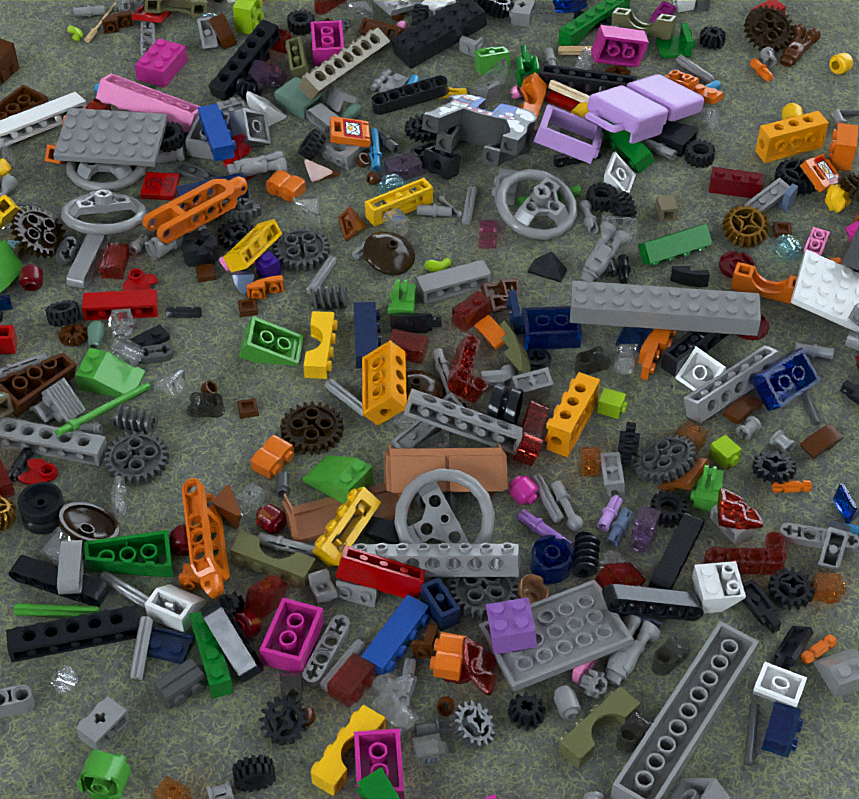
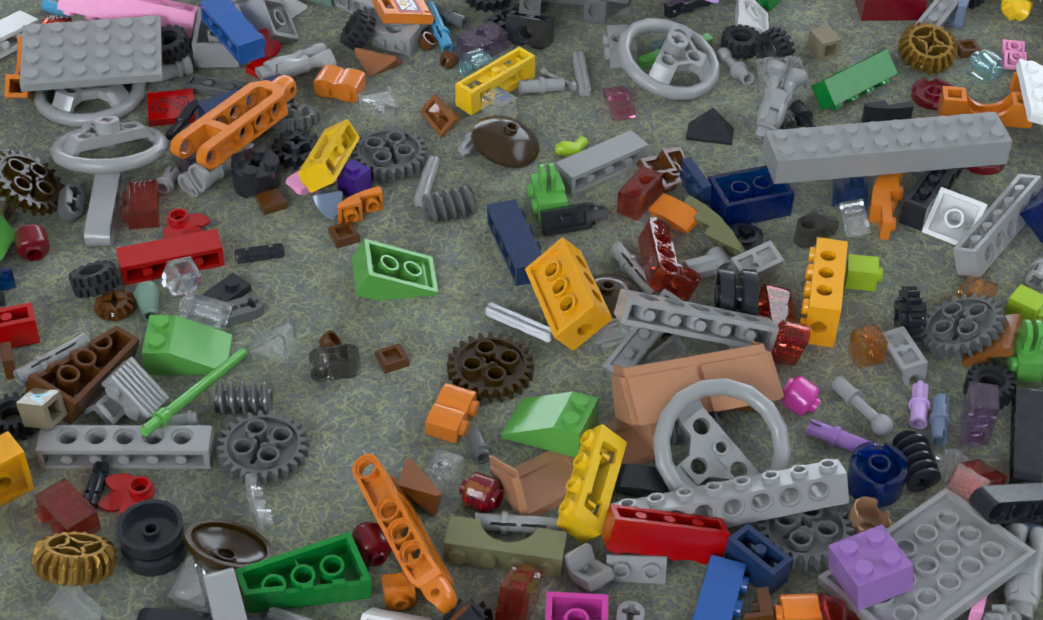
camera: 15 degrees left, 5 degrees down
(165, 196) = (182, 119): none -> black piece
(317, 361) = (465, 282): yellow arch -> none
(413, 344) = (584, 239): clear red brick -> none
(547, 499) = (836, 404): light grey axle -> none
(742, 408) = (1021, 253): reddish brown slope -> none

